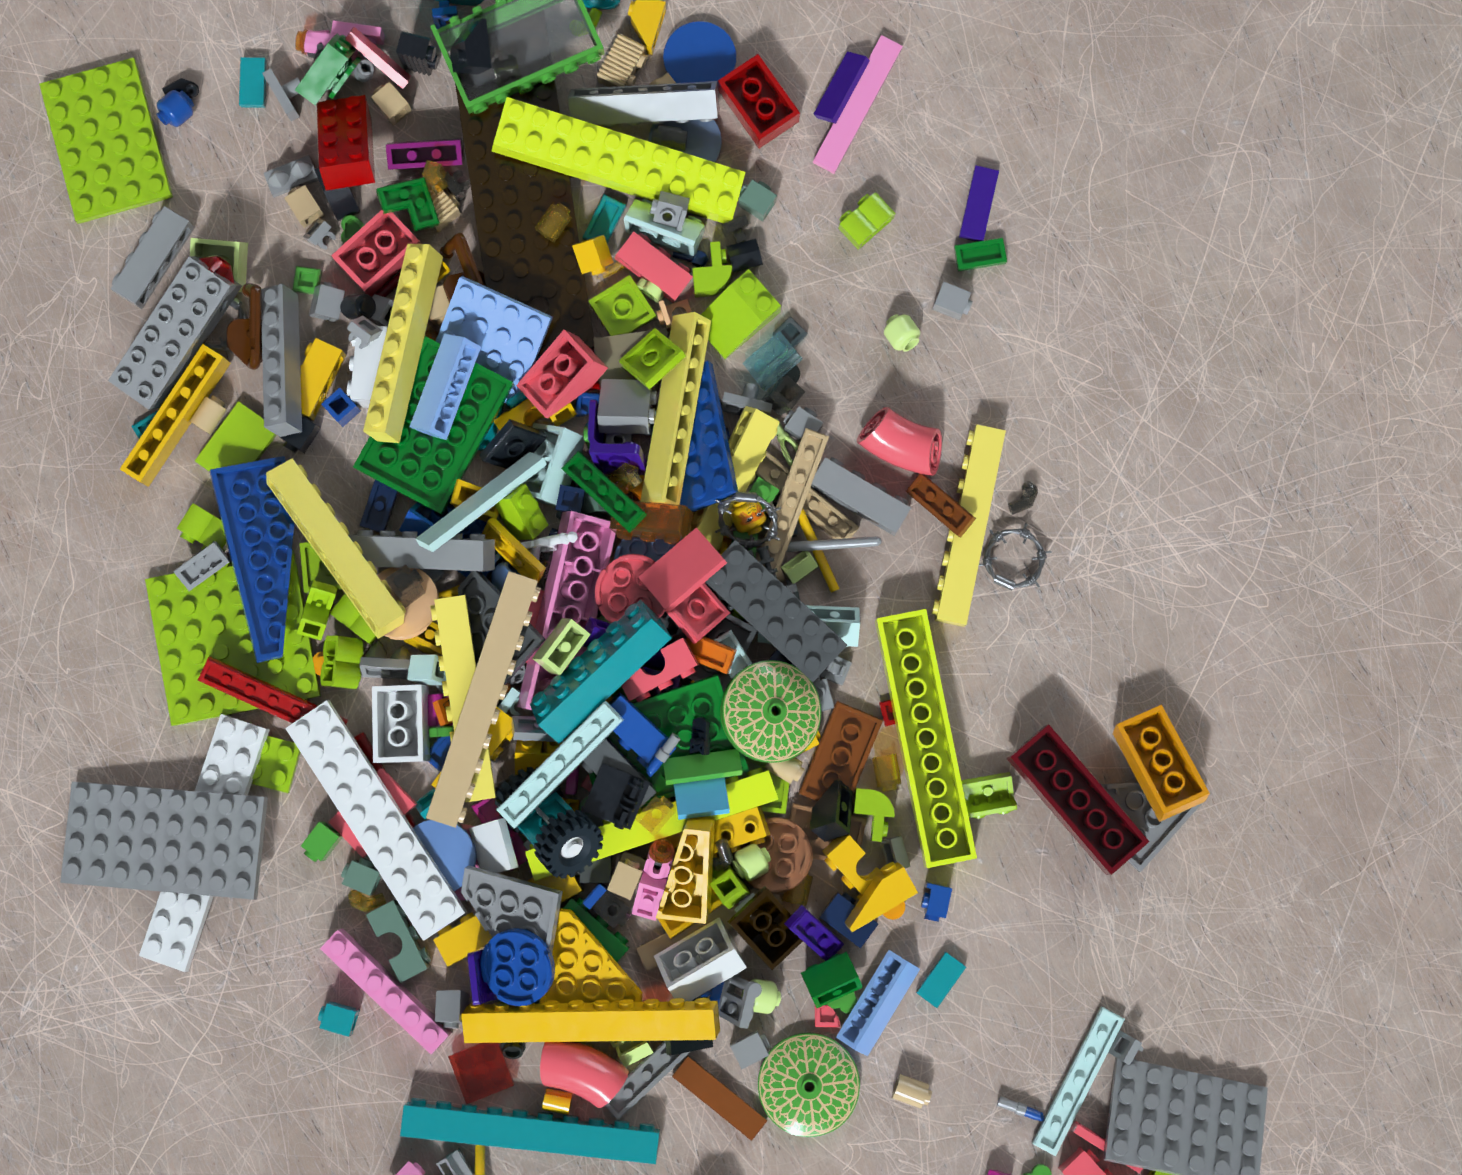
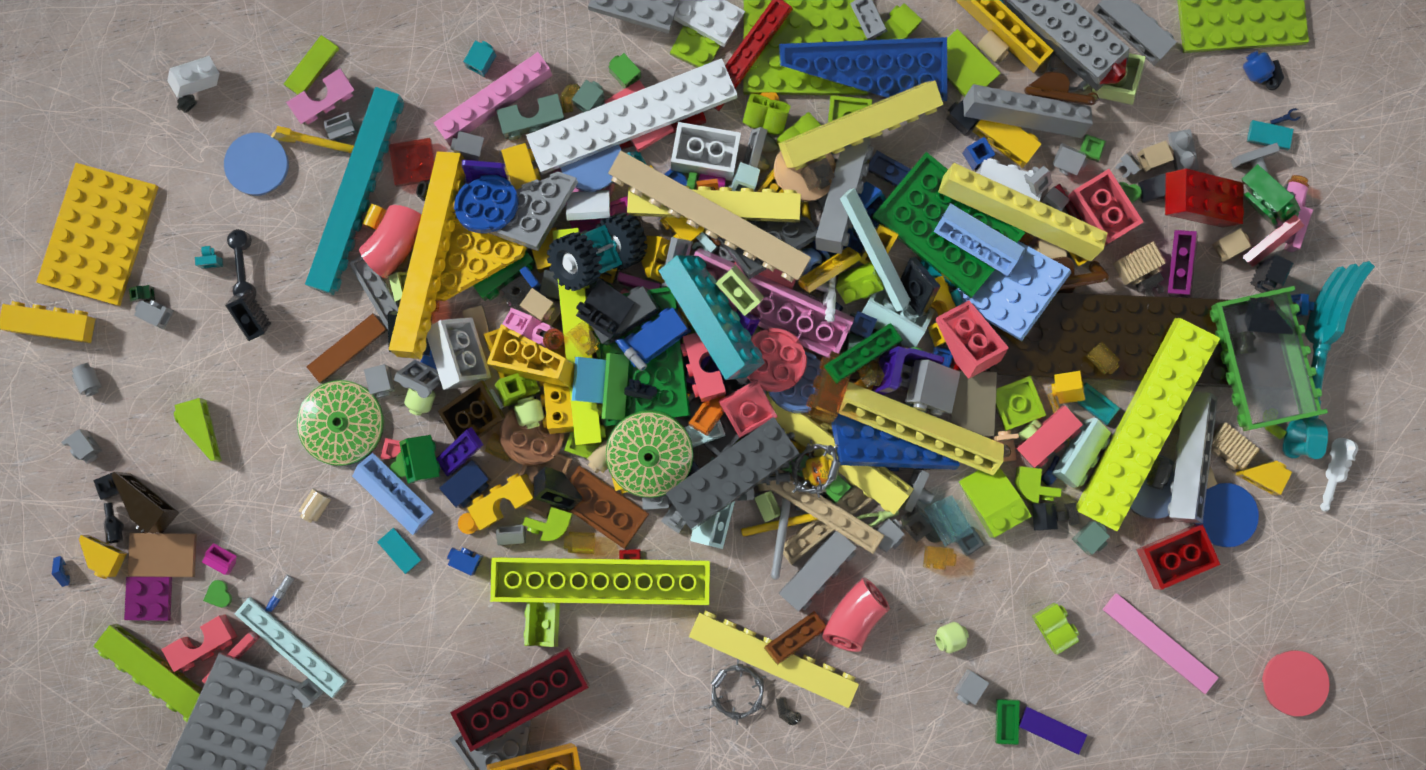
camera: 100 degrees right, 0 degrees up
(227, 66) = (1285, 117): none -> dark blue hand
(317, 610) = (813, 101): lime brick -> none
(358, 305) = (1061, 183): black brick -> none
(364, 76) = (1258, 228): light grey pin -> none
(412, 196) = (1148, 243): green tile -> none
(434, 175) = (1162, 266): clear yellow piece -> none
(560, 764) = (641, 268): light aqua tile -> none
(652, 358) = (969, 417): lime plate -> none
(670, 210) = (1095, 458): light grey brick -> none
(682, 570) = (782, 403): coral tile -> none
(725, 855) = (539, 391): clear smoke arm -> none
(815, 364) = (939, 557): none -> clear yellow brick
(841, 87) = (1177, 632): dark purple tile -> none
(884, 893) = (477, 515): yellow slope -> none

